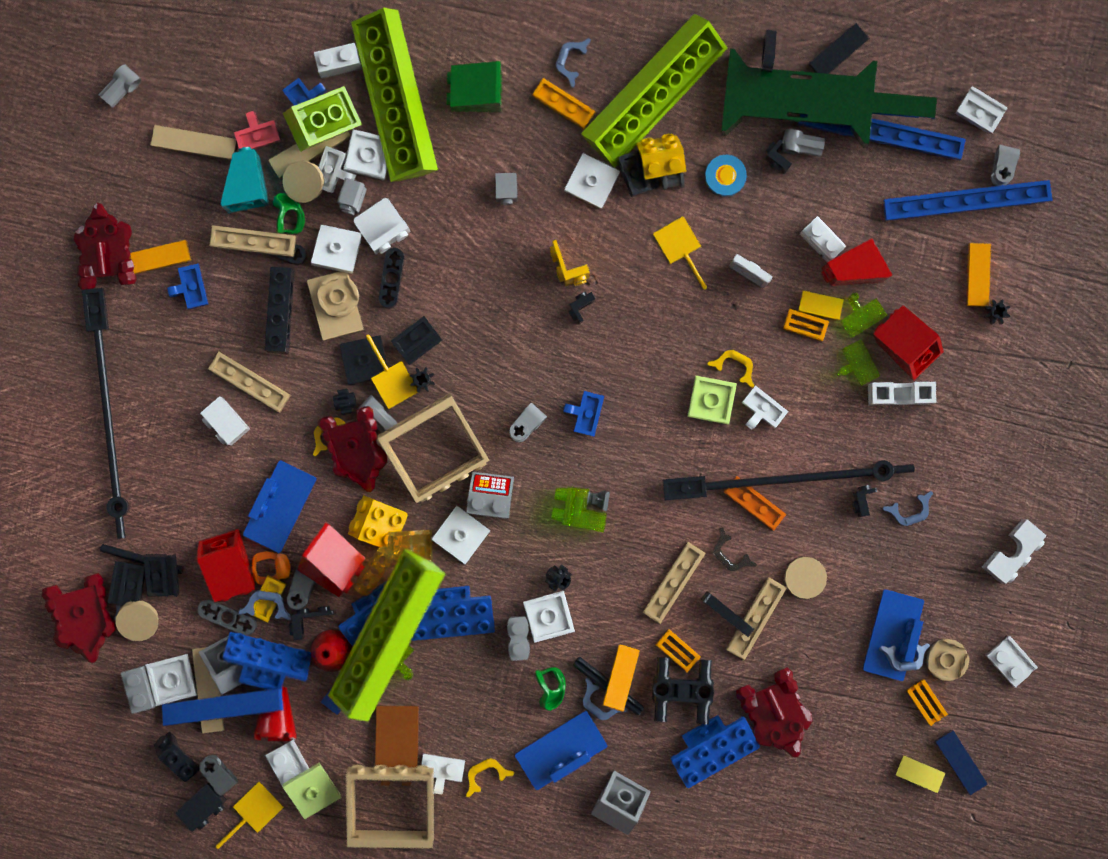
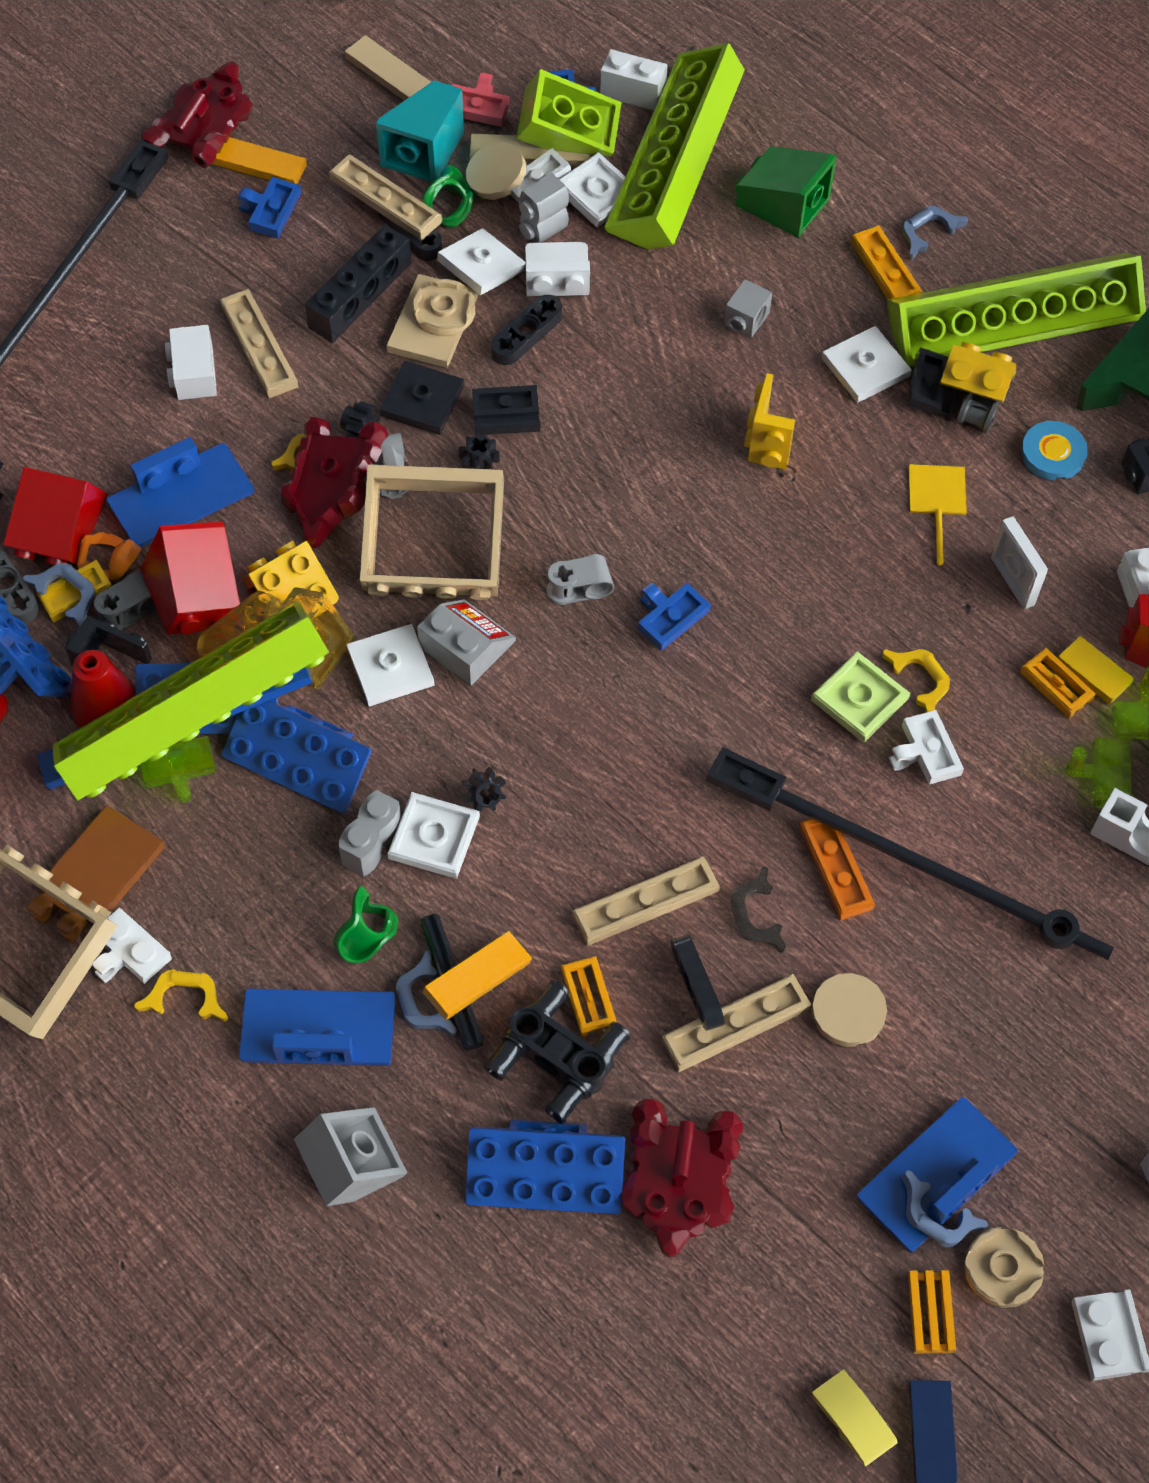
camera: 35 degrees right, 25 degrees down
(393, 382) = (438, 438): yellow piece -> none
(575, 509) = (571, 718): clear neon green hips -> none
(582, 301) = (754, 483): black bracket -> none
(860, 504) = (1008, 939): black bracket -> none
(924, 500) = (1056, 1024): sand blue helmet -> none

